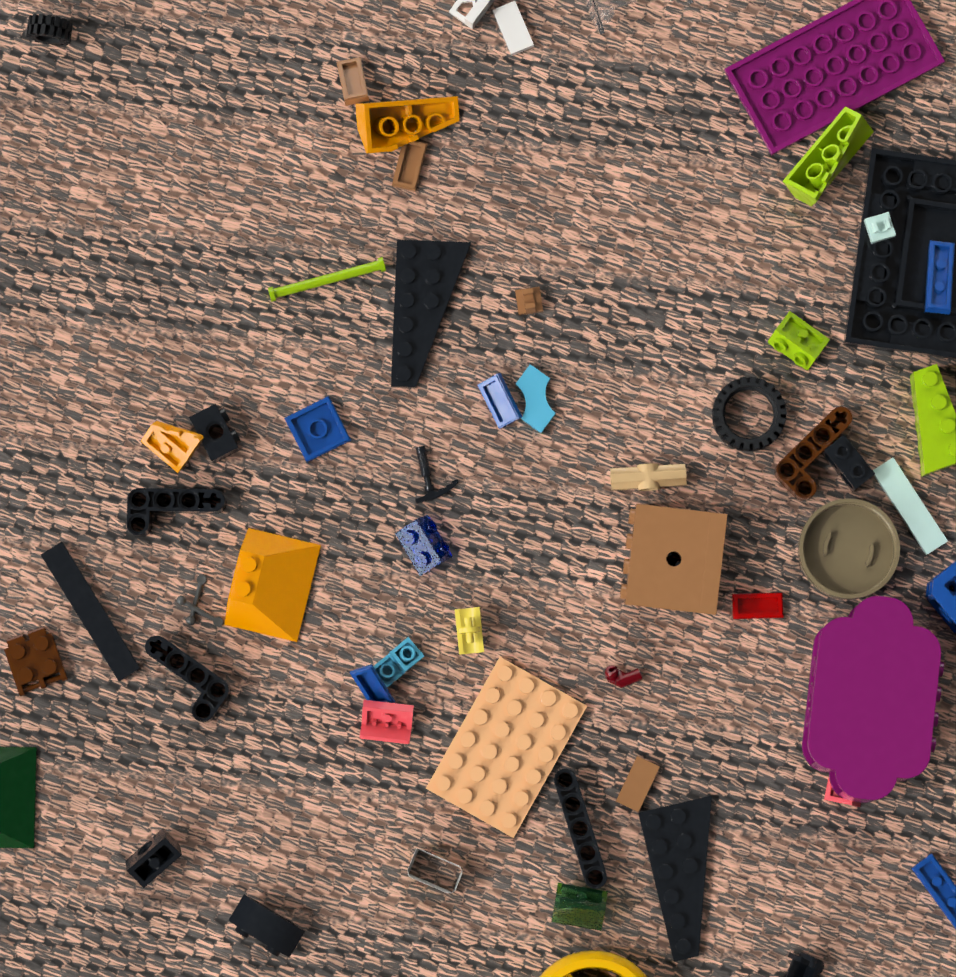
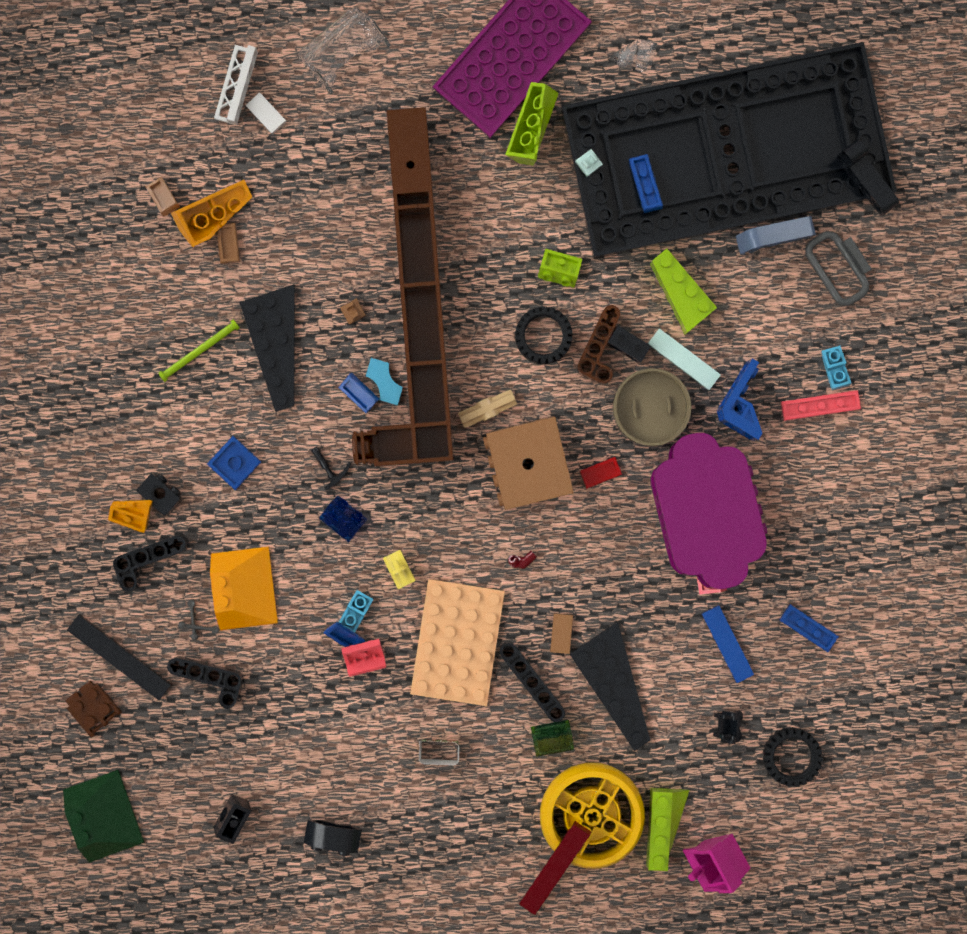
camera: 30 degrees left, 5 degrees up
(567, 480) = (430, 433): none -> reddish brown piece
(836, 873) = (727, 644): none -> blue tile

